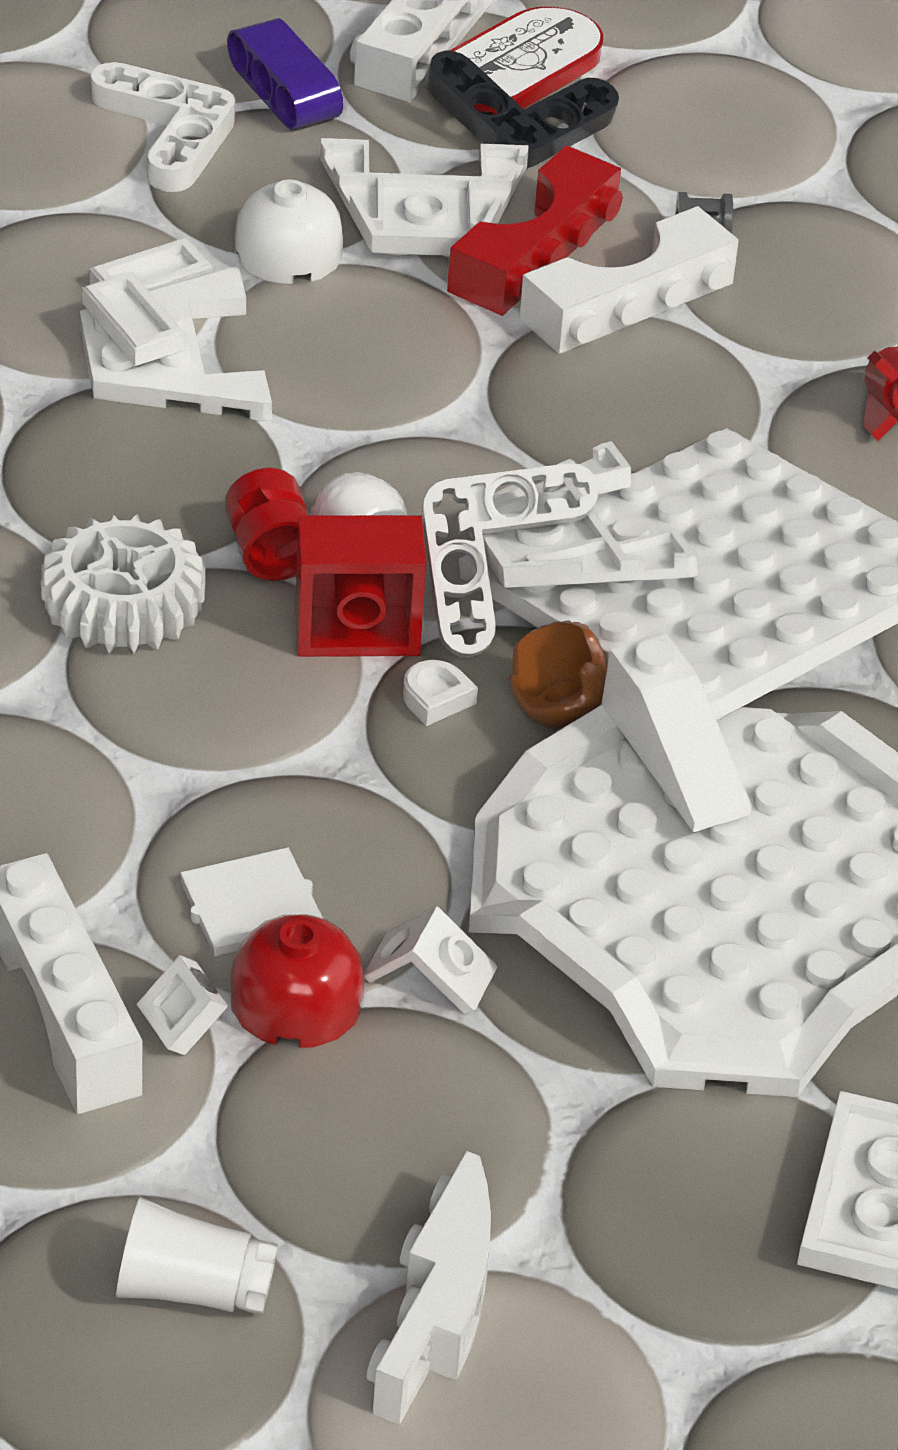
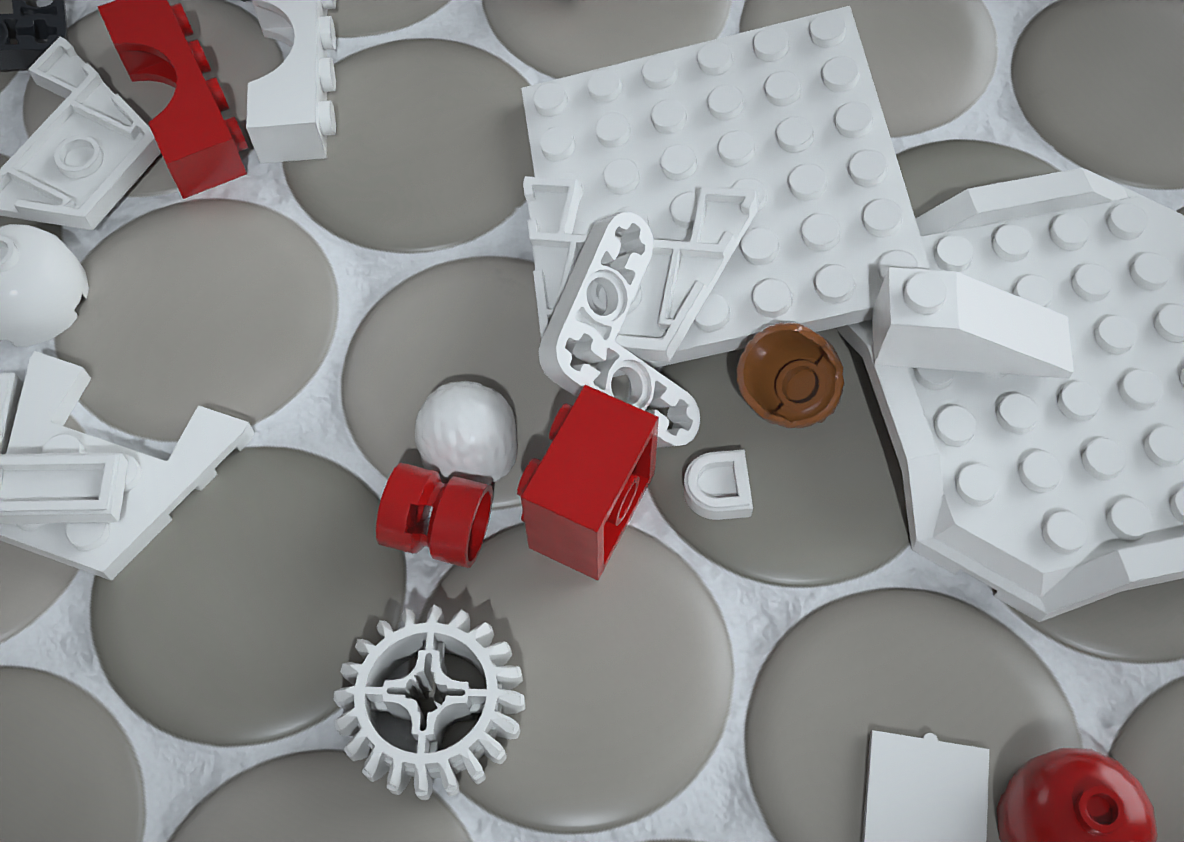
camera: 55 degrees left, 20 degrees up
(440, 954) = (1104, 670): white bracket -> none

